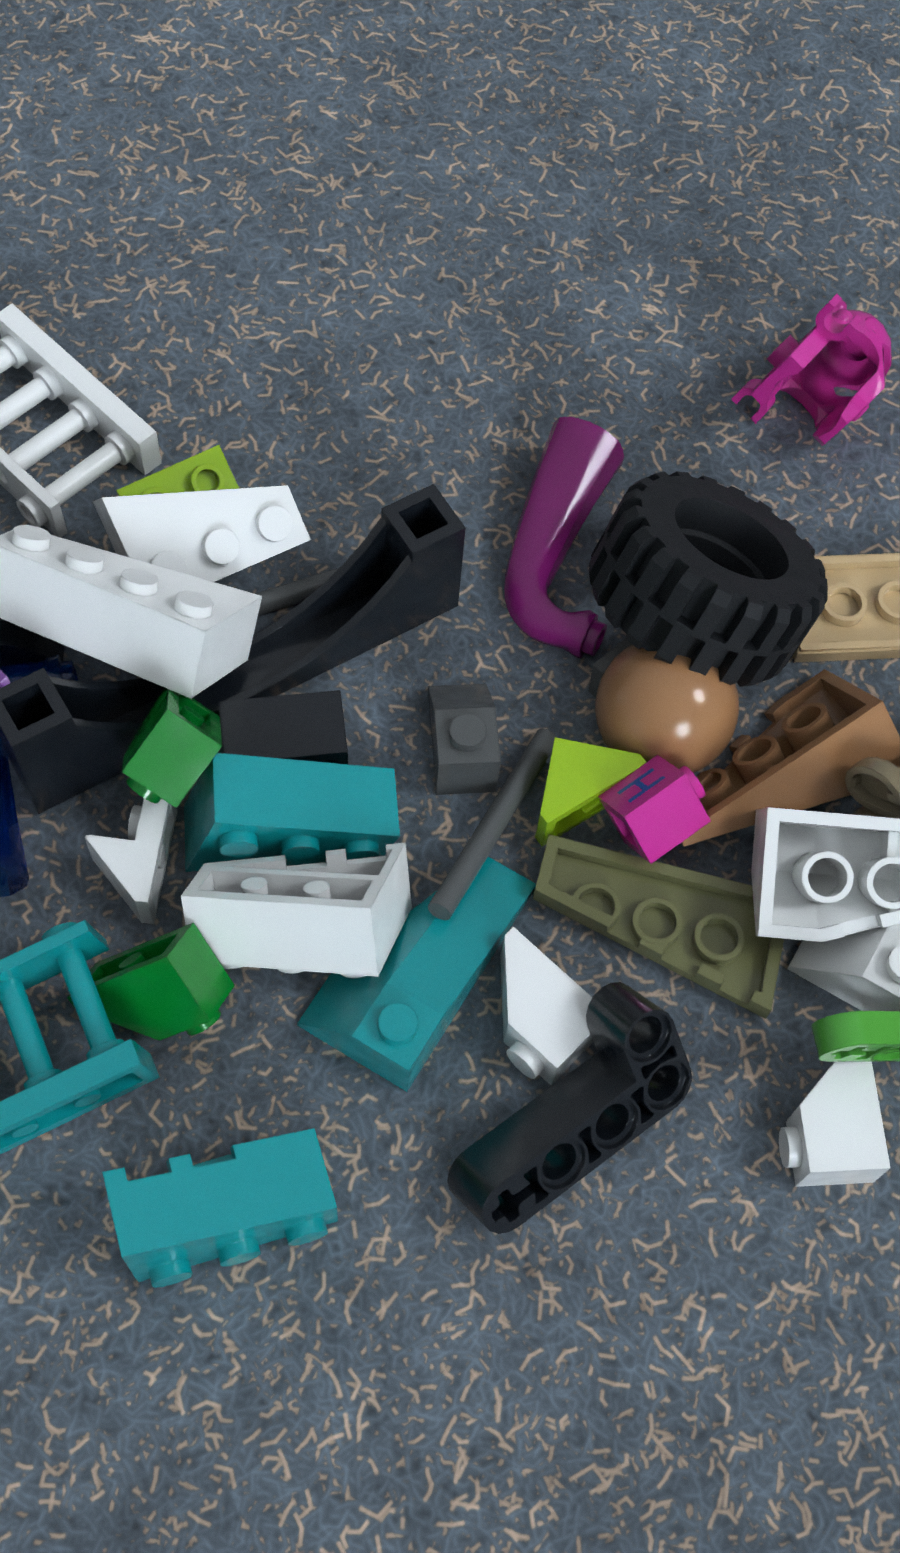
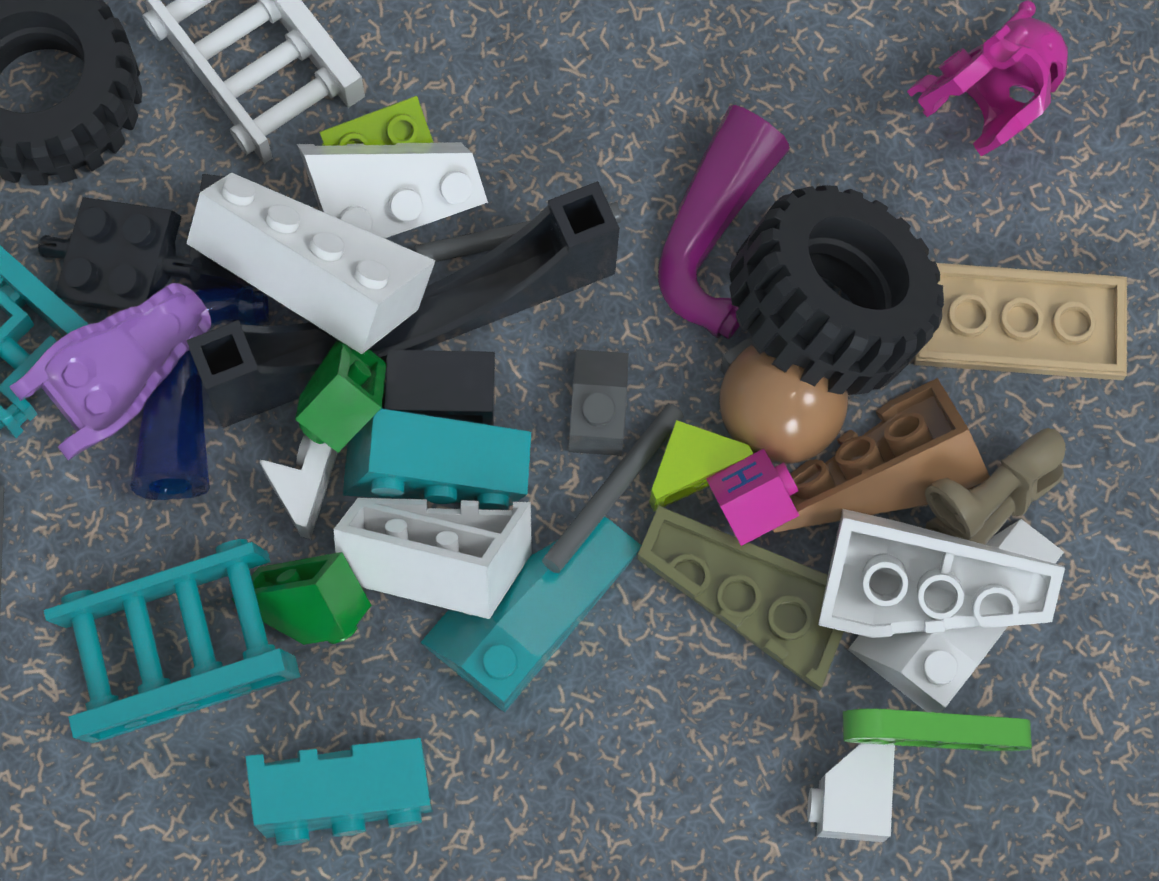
camera: 10 degrees right, 10 degrees up
(540, 1011) = (628, 663): white slope -> none
(579, 1119) = (642, 758): black beam -> none

